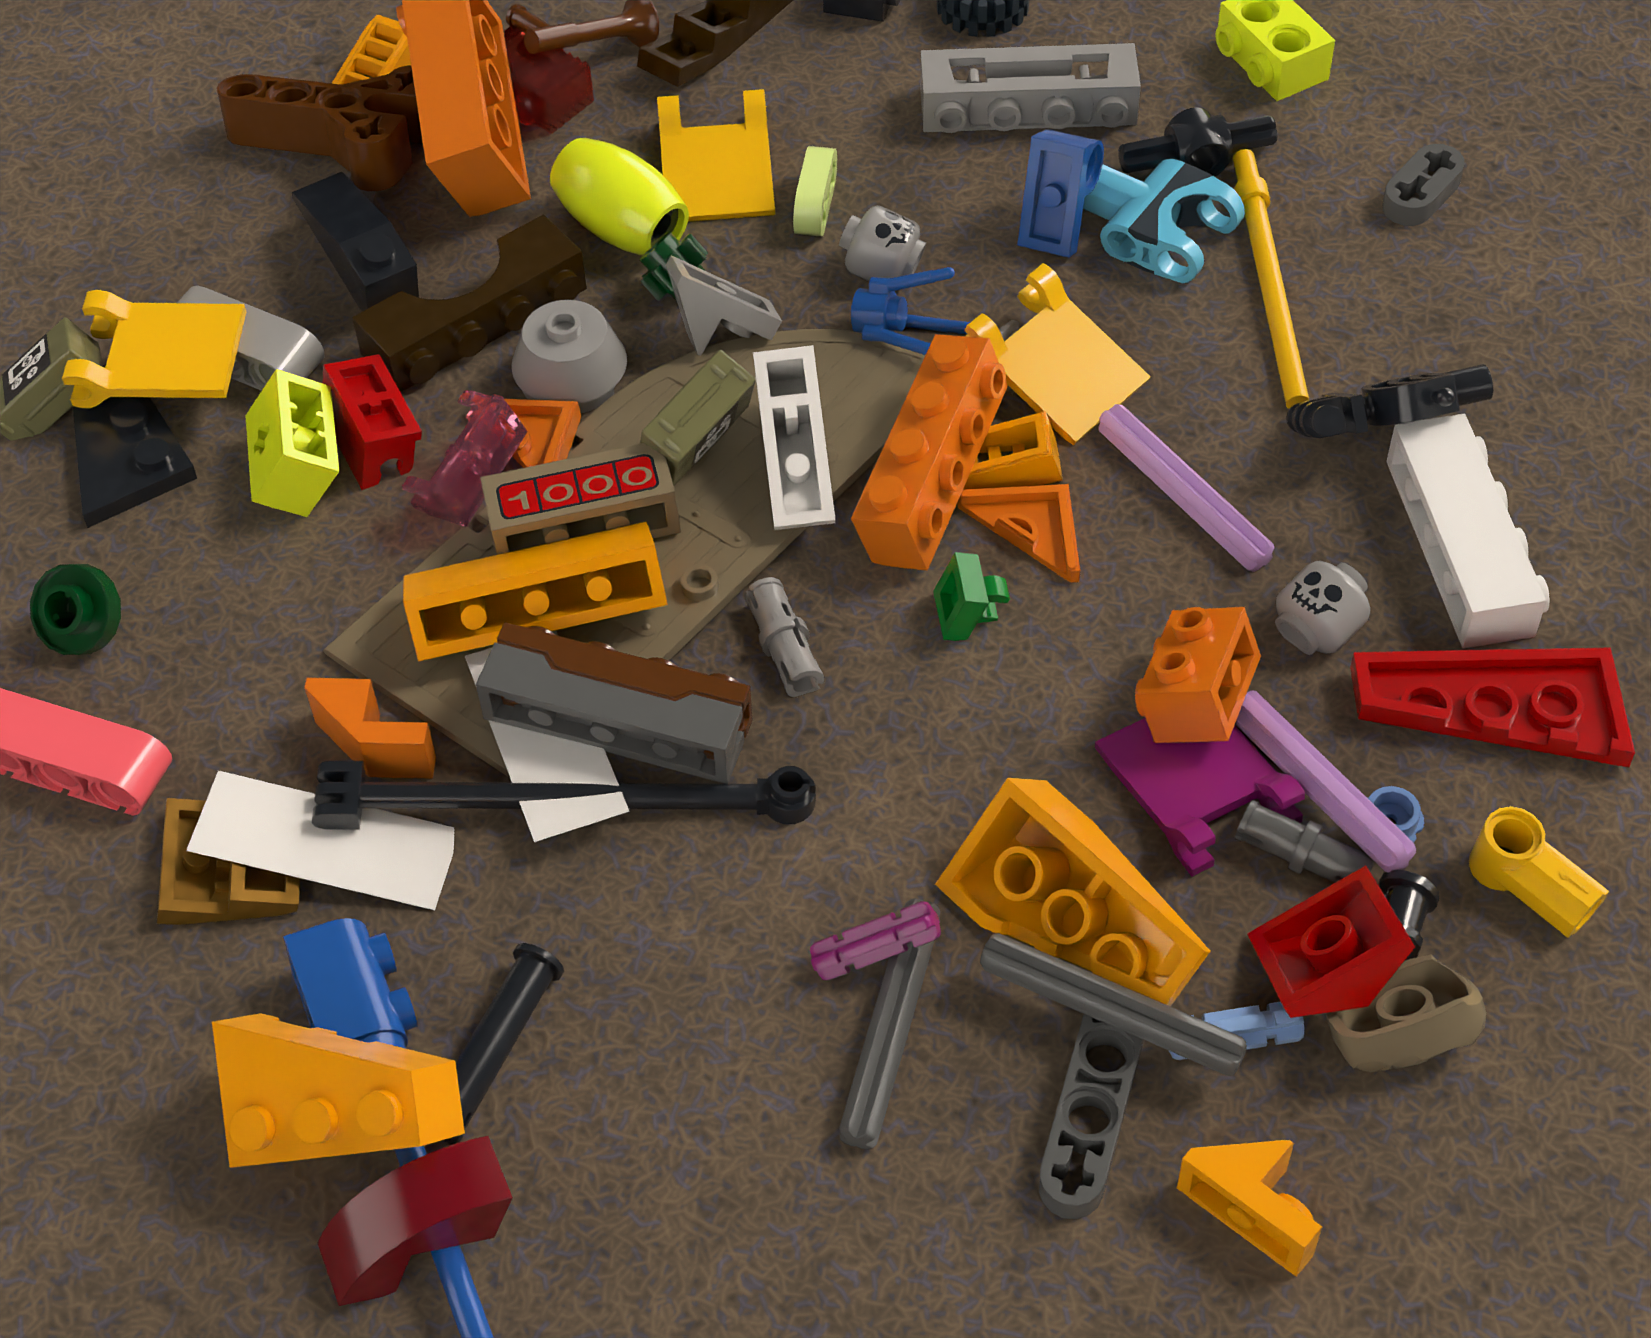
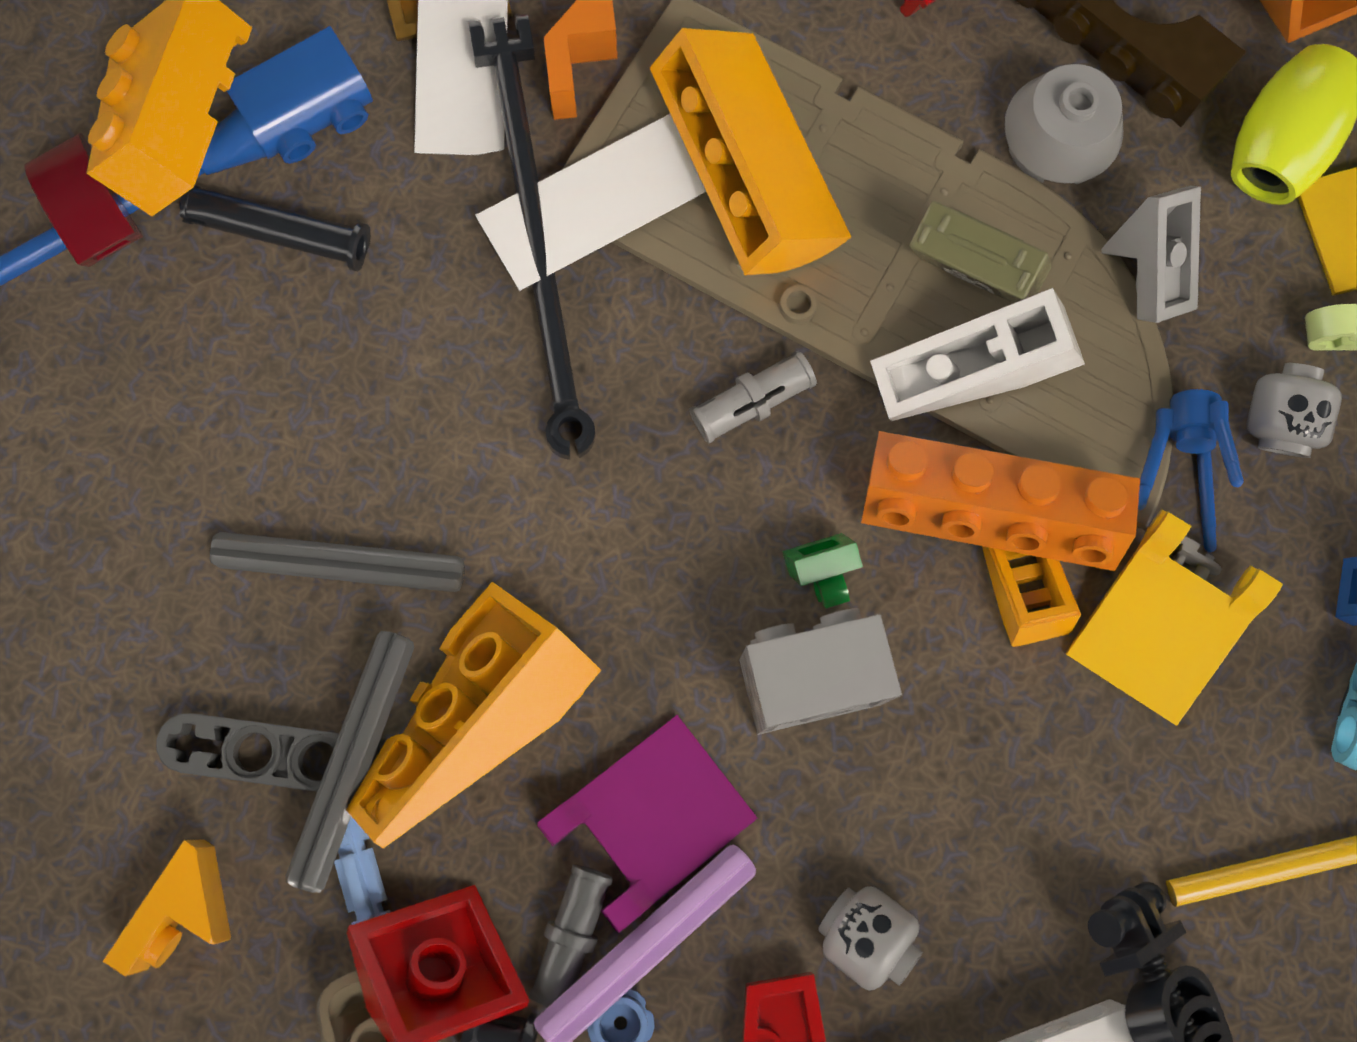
camera: 75 degrees right, 25 degrees up
(479, 451) = (903, 61): clear pink hinge -> none
(549, 427) = (963, 117): orange tile -> none
(581, 498) = (863, 167): dark tan brick -> none
(616, 701) = (622, 250): dark grey piece -> none
(657, 279) = (1221, 199): dark green gear -> none
(875, 940) = (402, 534): magenta axle -> none
(1032, 520) = (950, 621): orange tile -> none
(1076, 599) = (818, 672): none -> light grey brick
(1186, 488) = (1022, 777): lavender axle -> none
(1198, 675) = (748, 811): orange brick -> none

